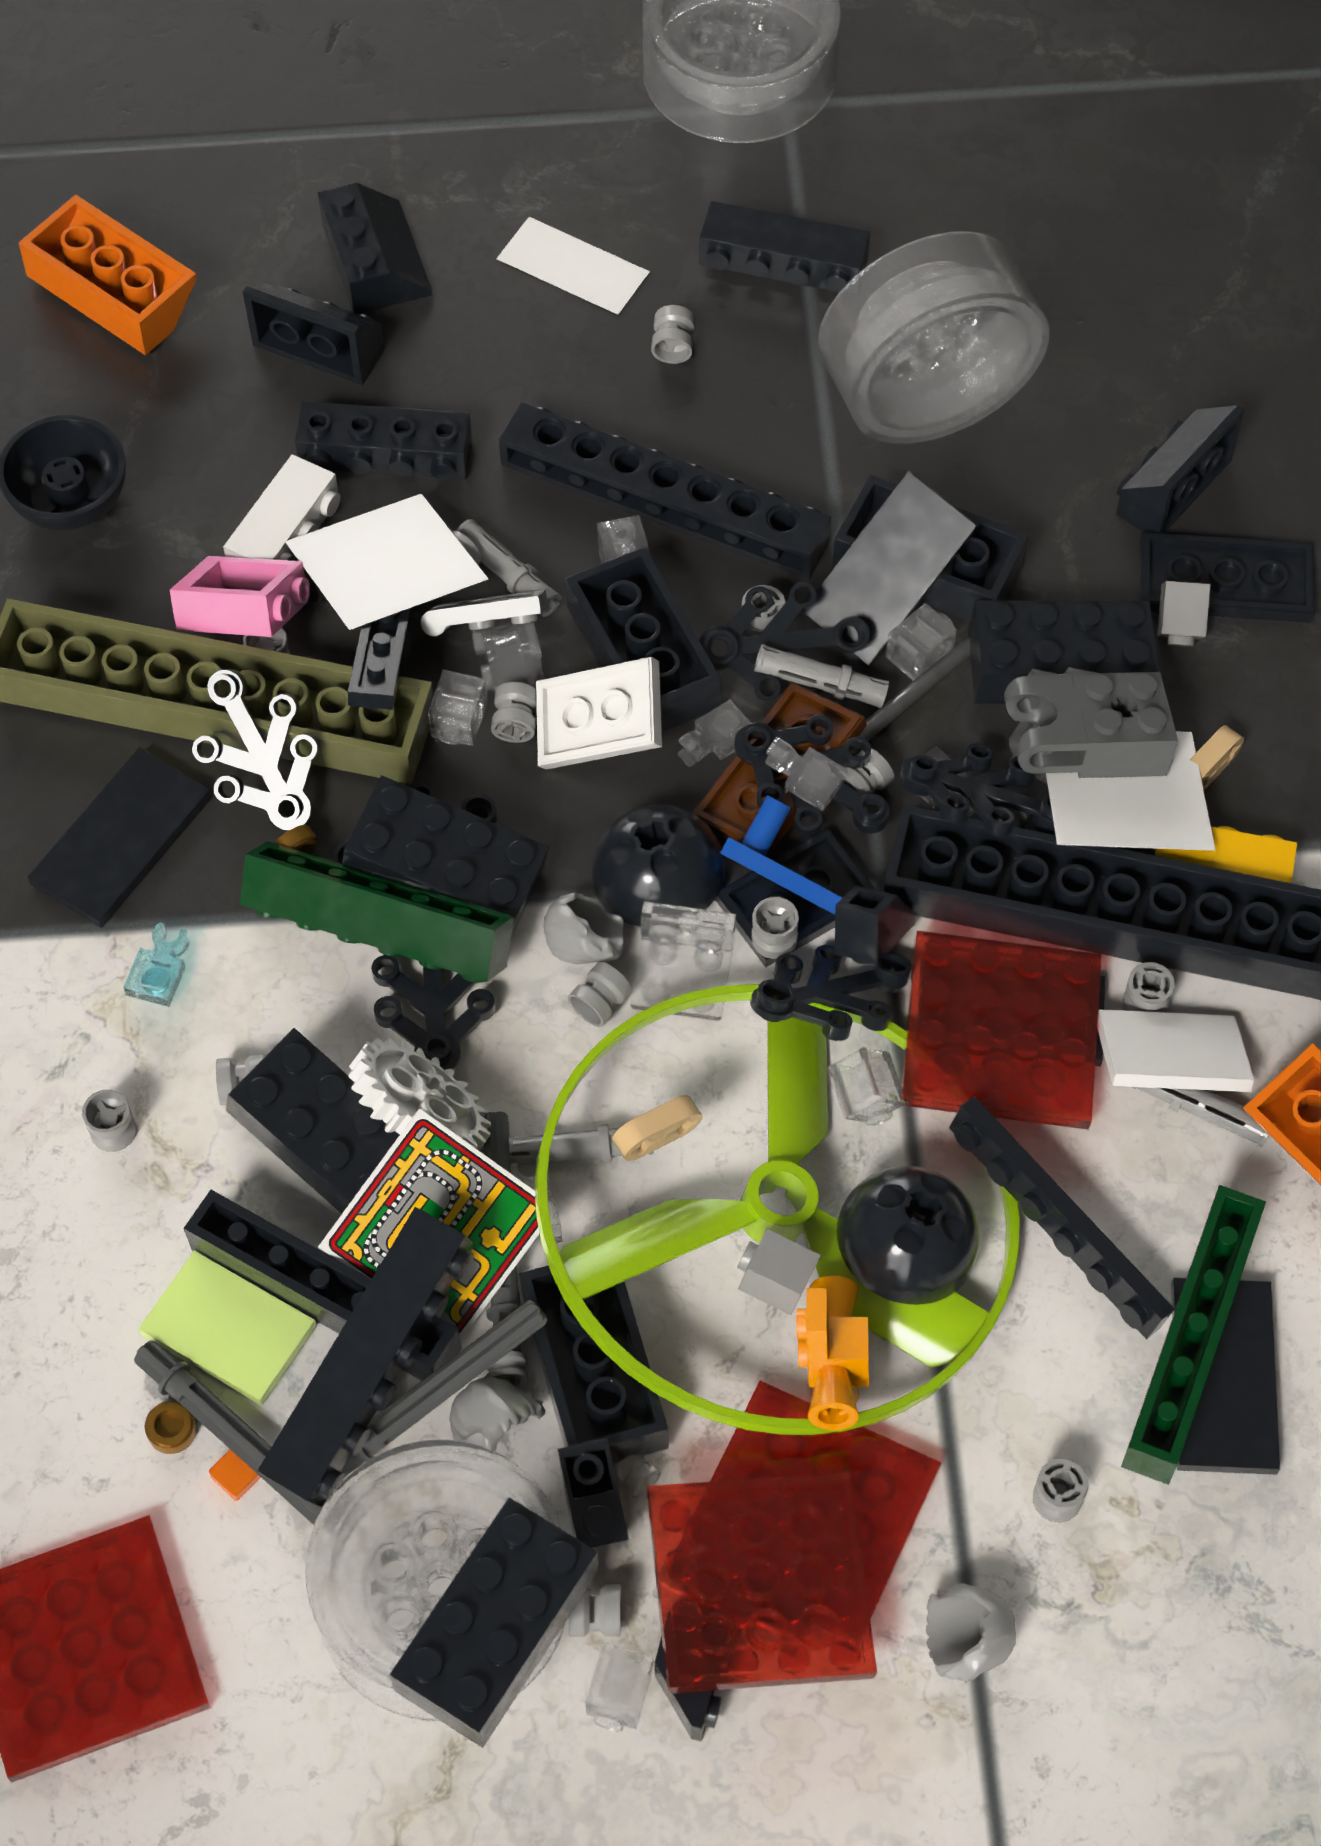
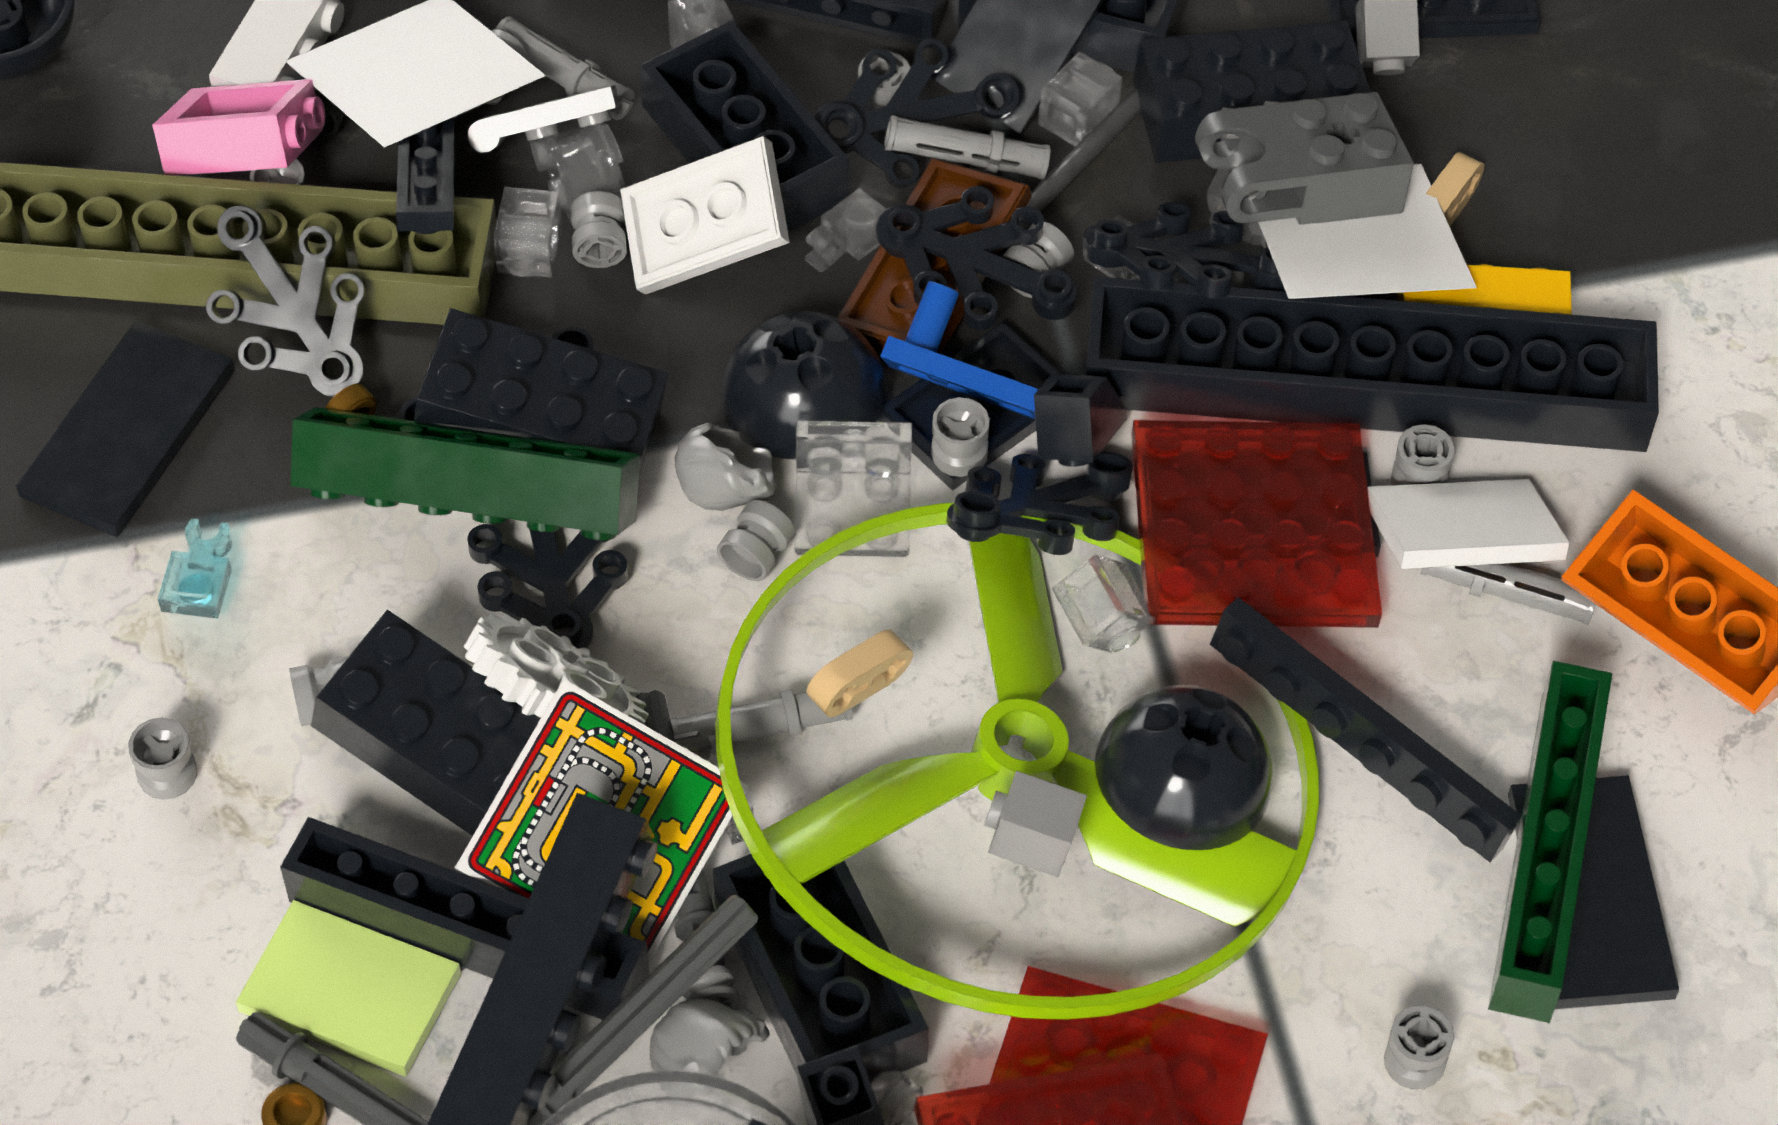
camera: 10 degrees left, 5 degrees down
(810, 777) = (975, 259): clear plate -> none
(833, 1350) = (1119, 912): light orange brick -> none

